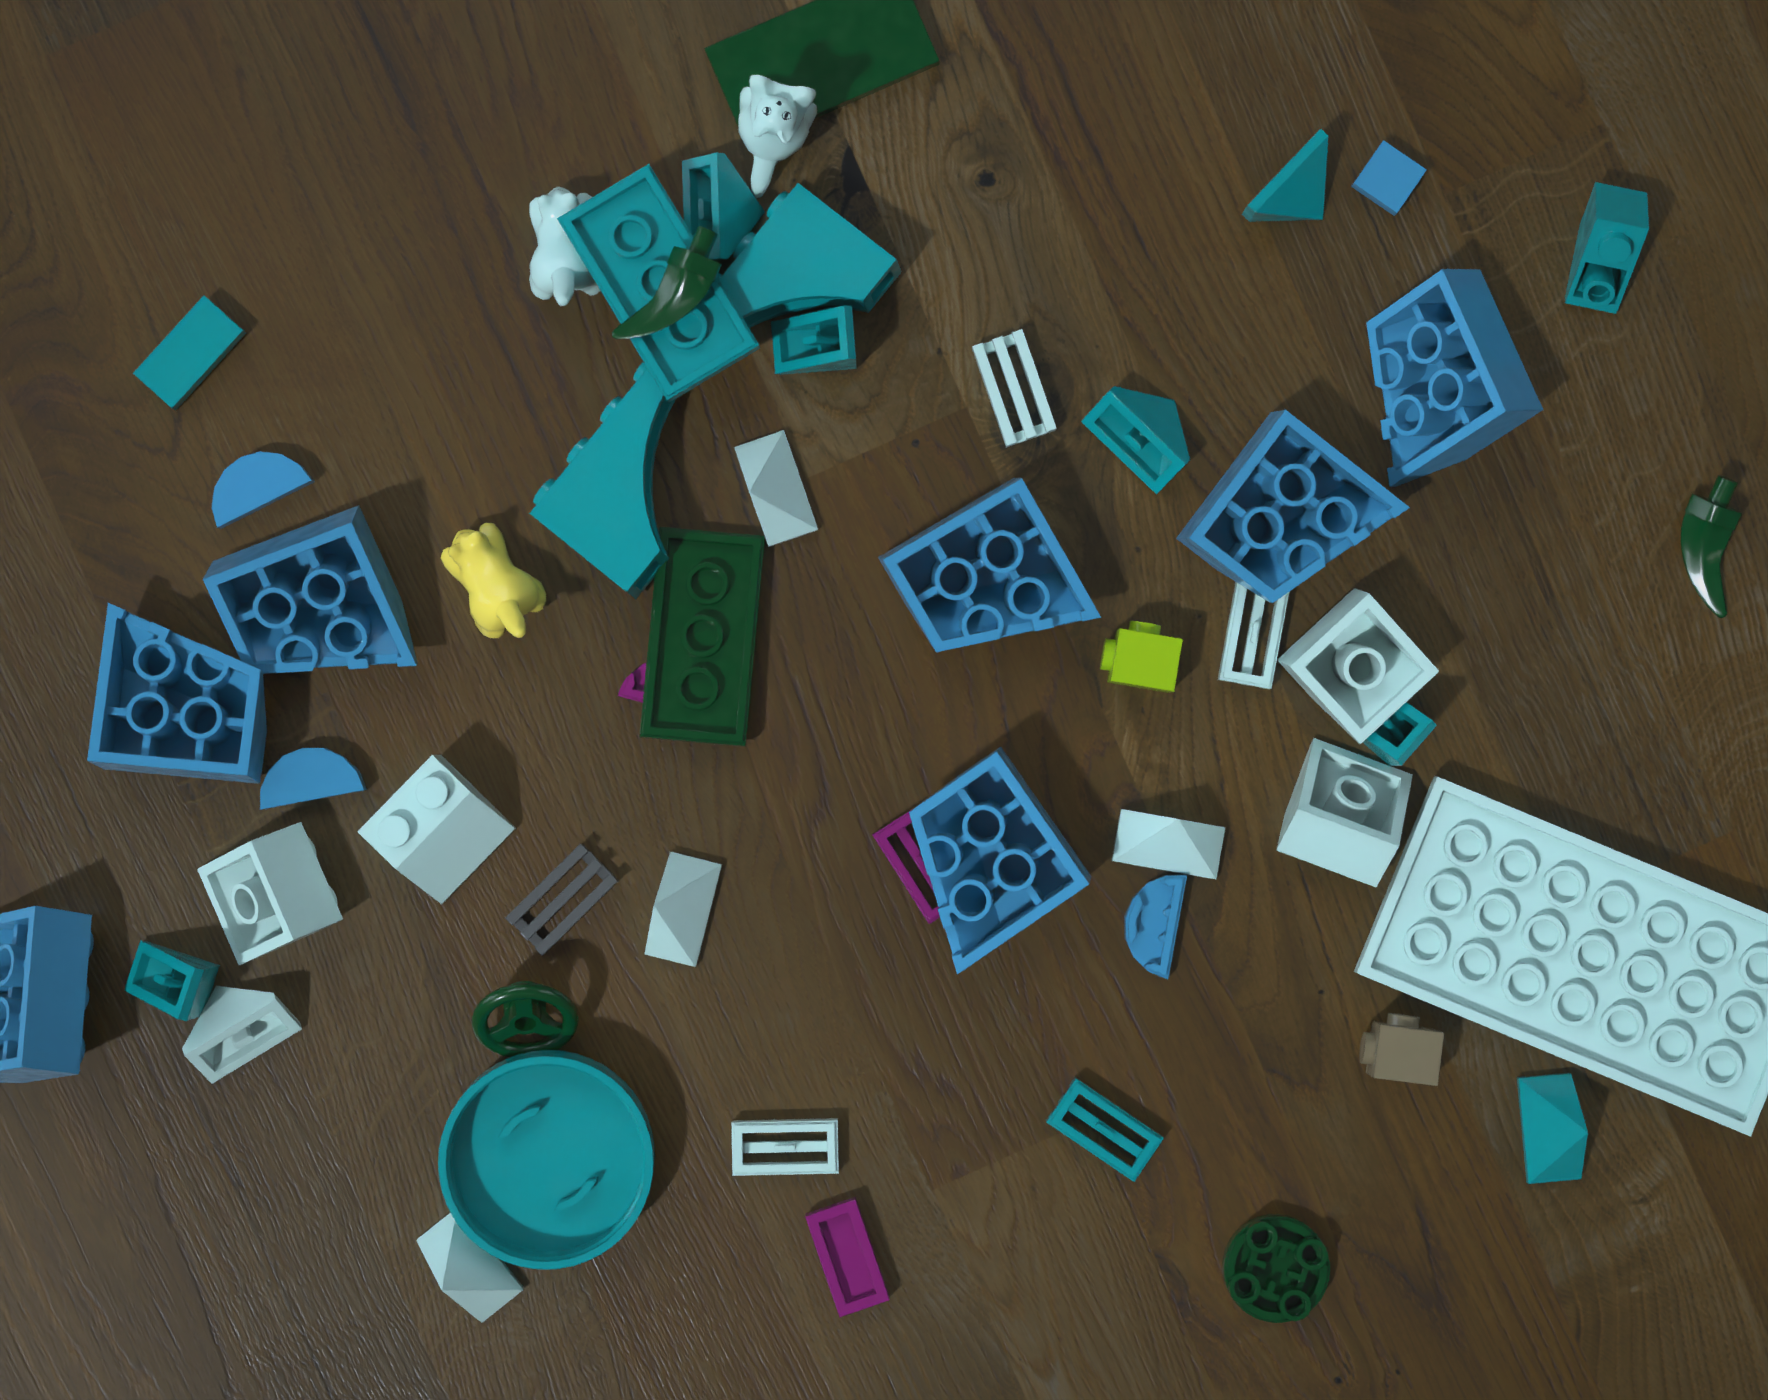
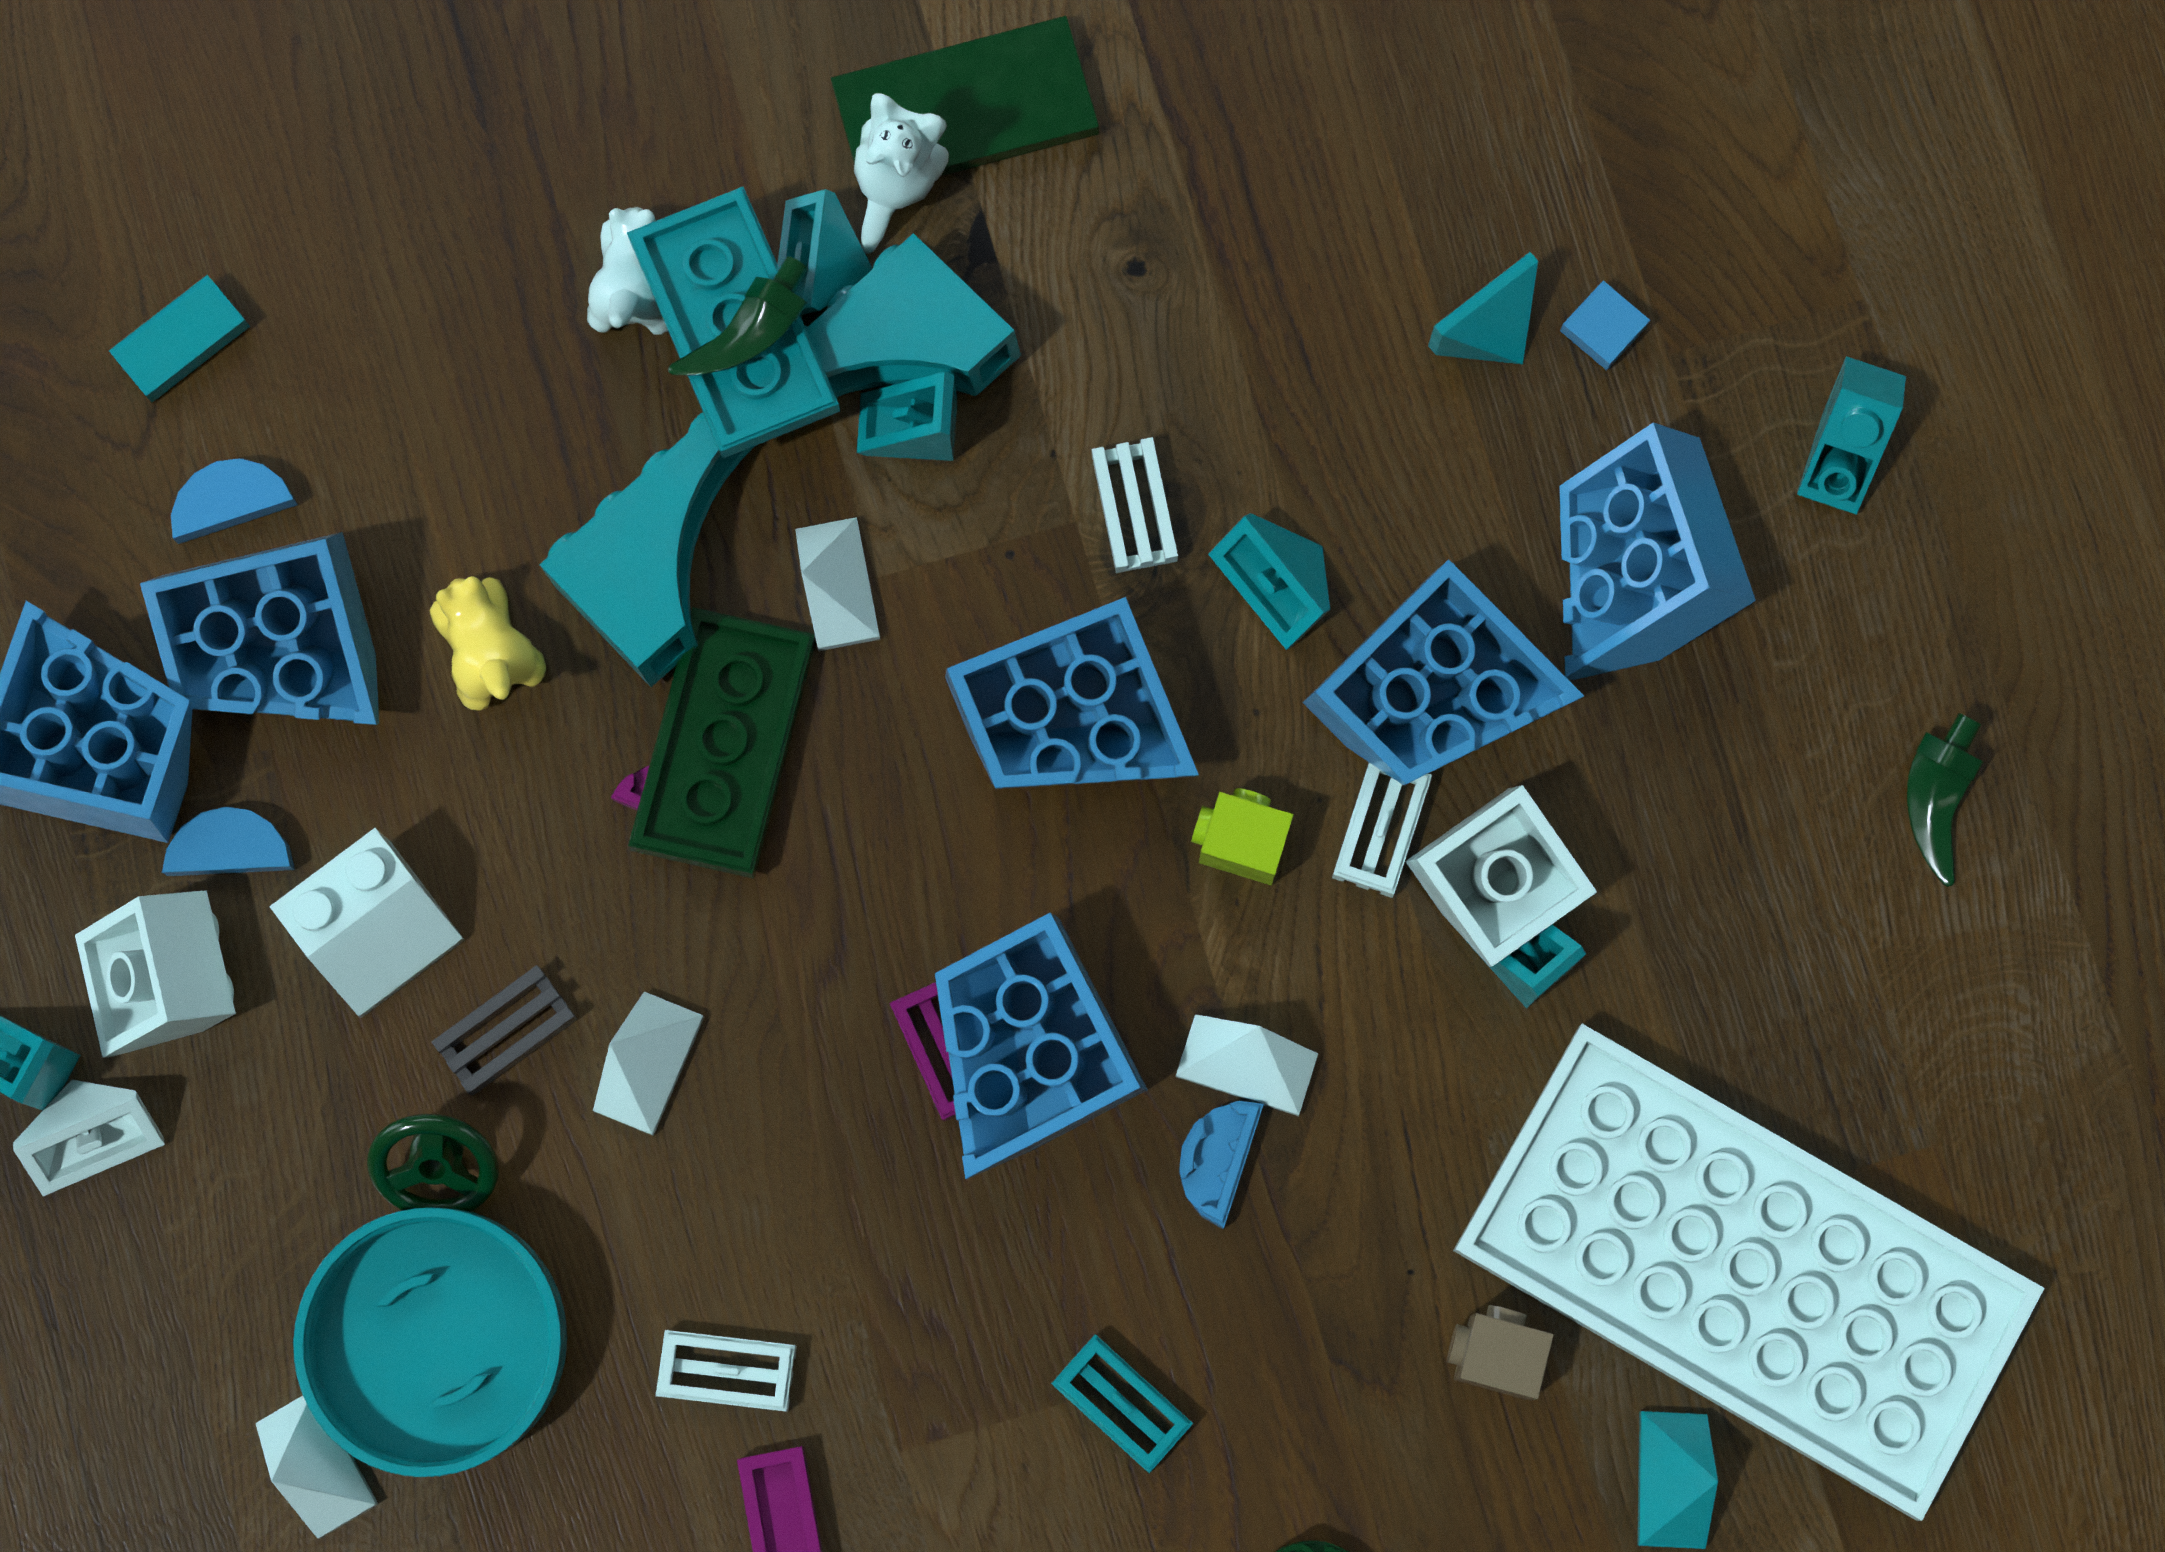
camera: 10 degrees right, 10 degrees down
(1345, 813) = (1465, 1054): light aqua slope -> none

